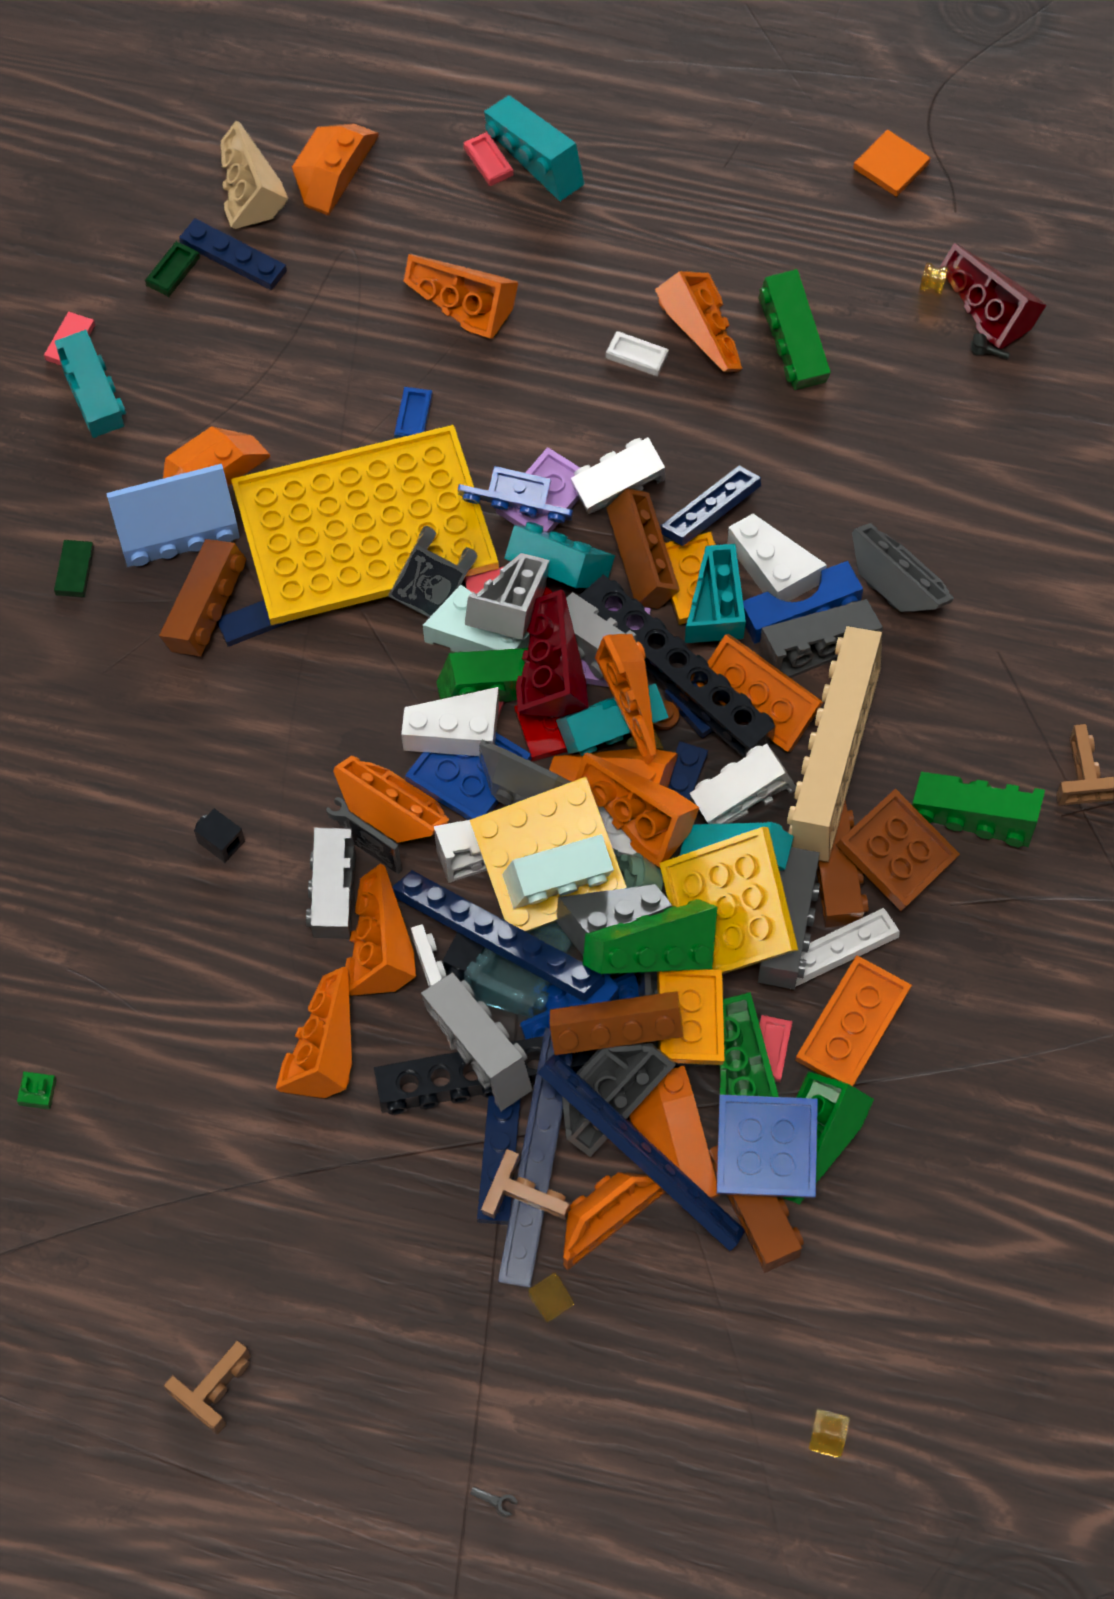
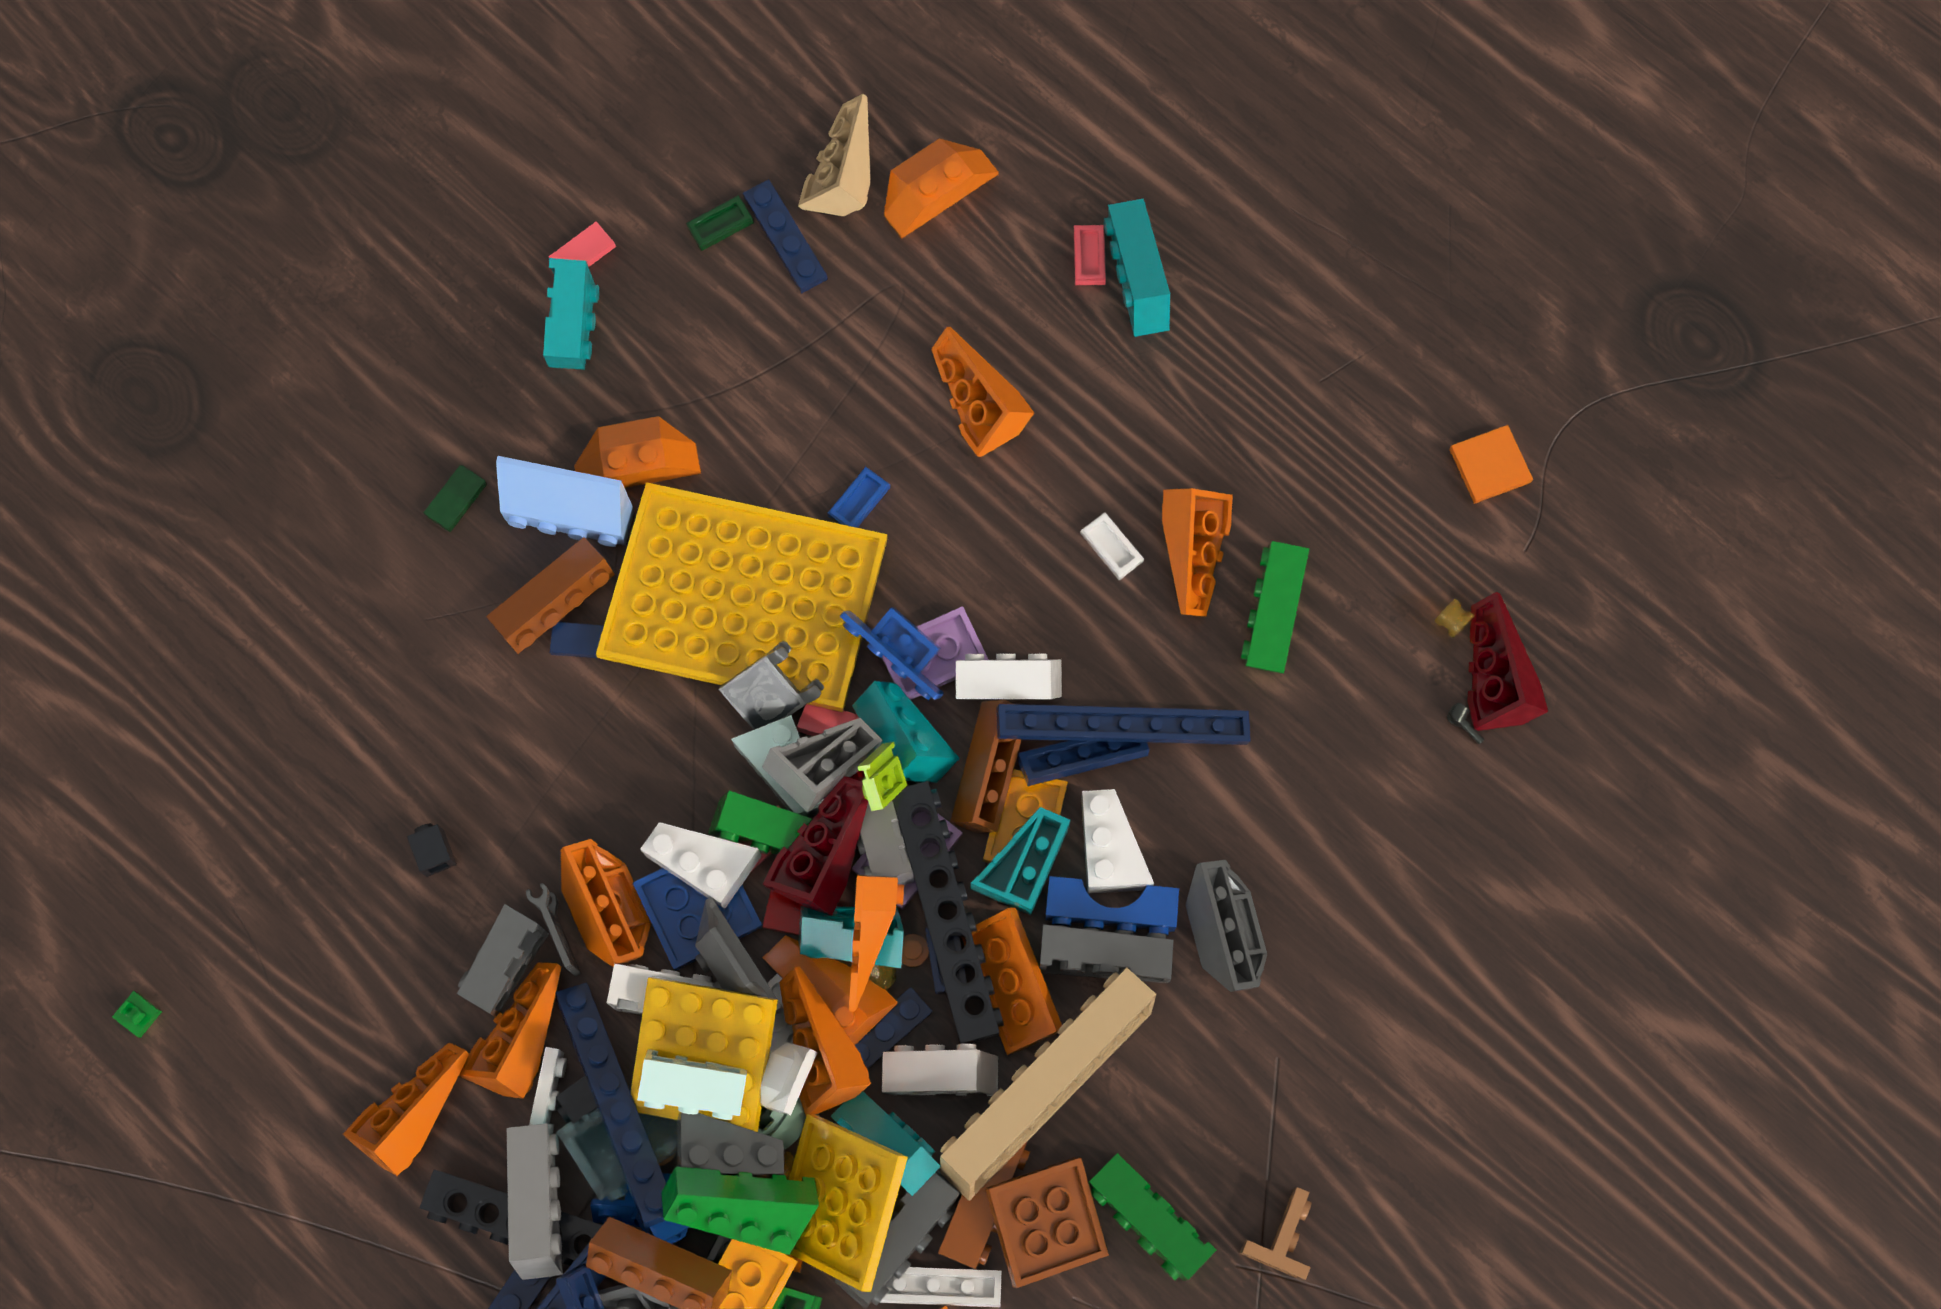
camera: 30 degrees right, 10 degrees up
(570, 581) = (883, 777): none -> lime plate
(629, 836) = (785, 1077): none -> white slope
(729, 465) = (1122, 724): none -> dark blue plate

